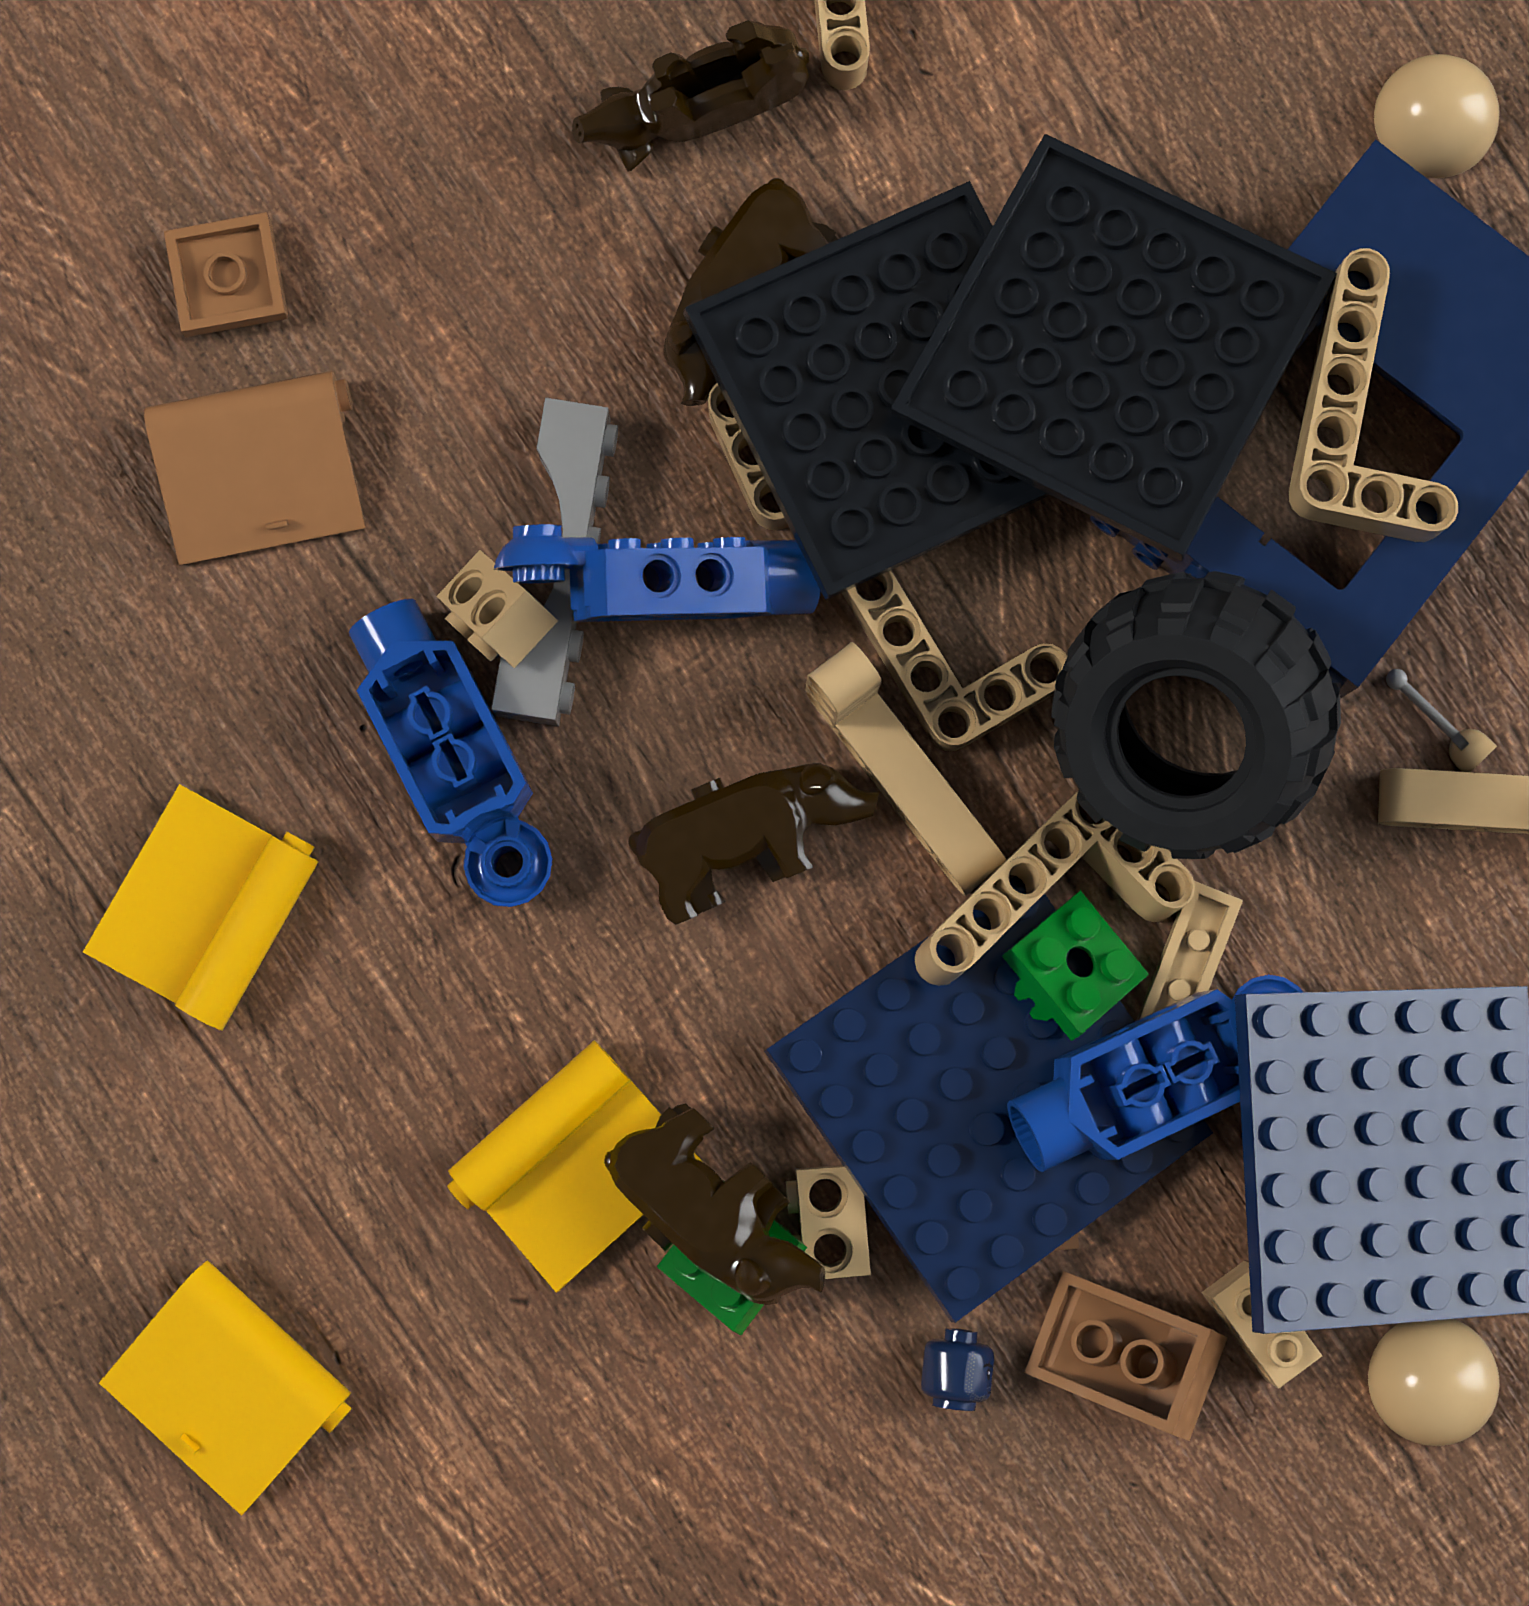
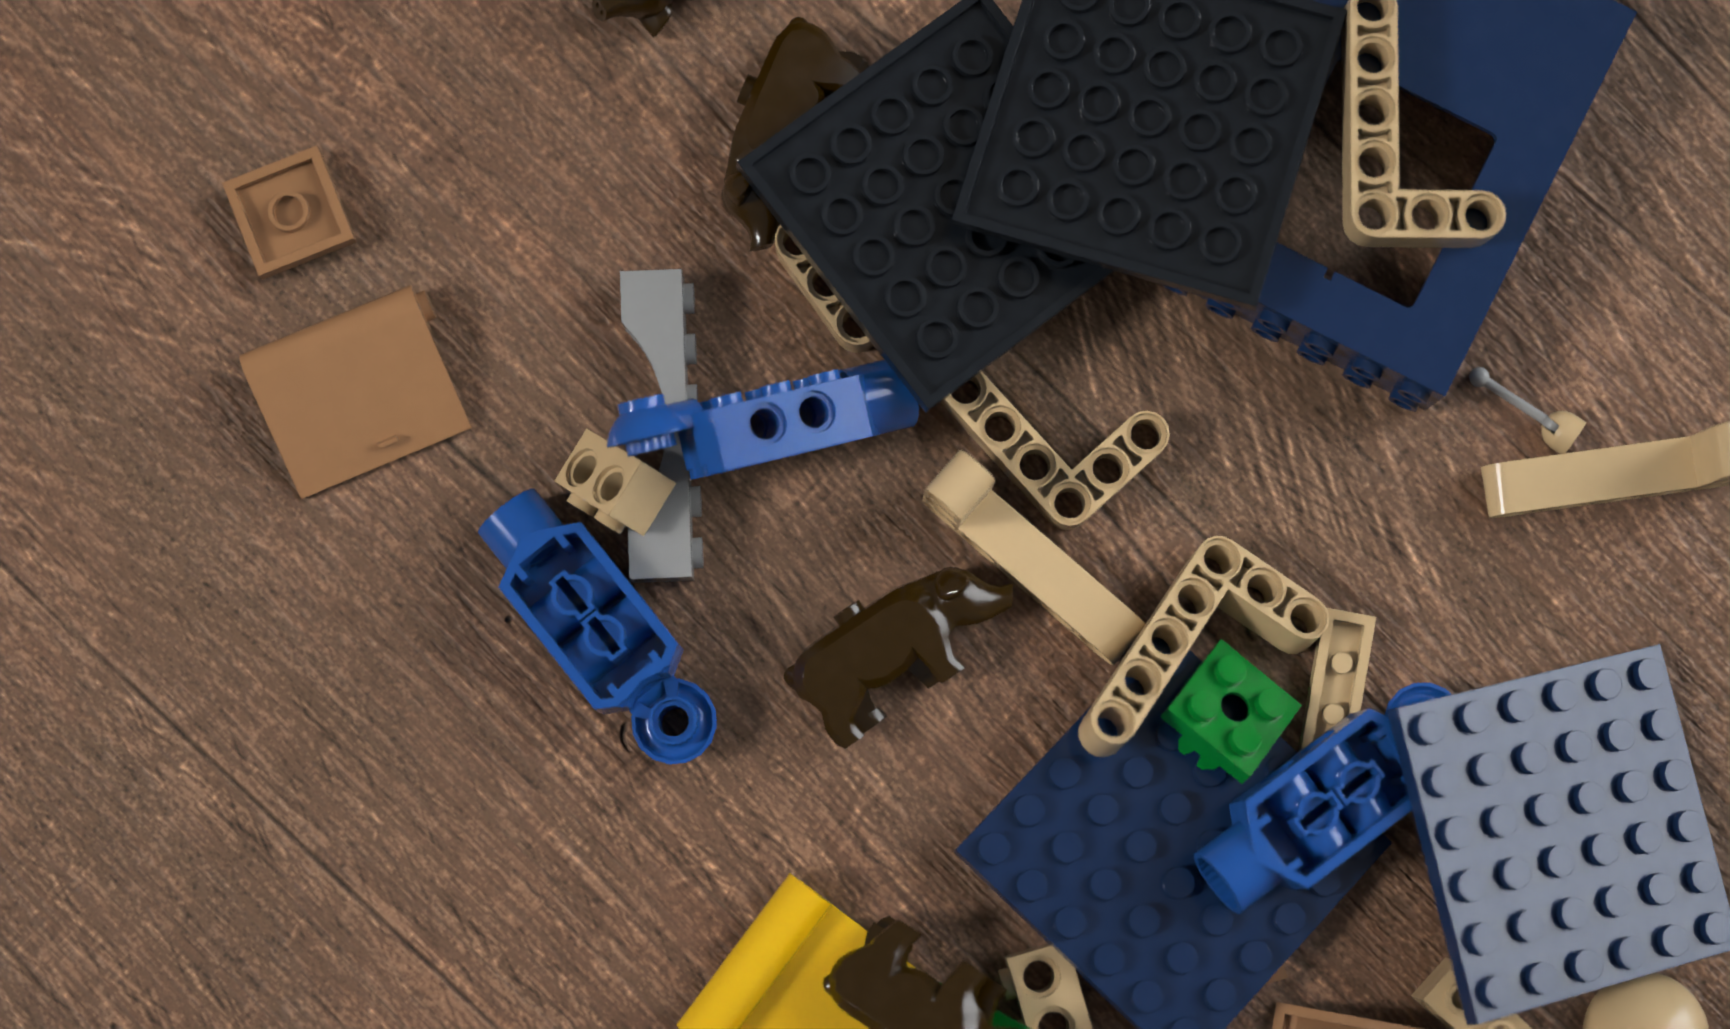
camera: 10 degrees left, 0 degrees up
(201, 906) = (390, 821): yellow door -> none
(1245, 649) = (1311, 379): black tyre -> none

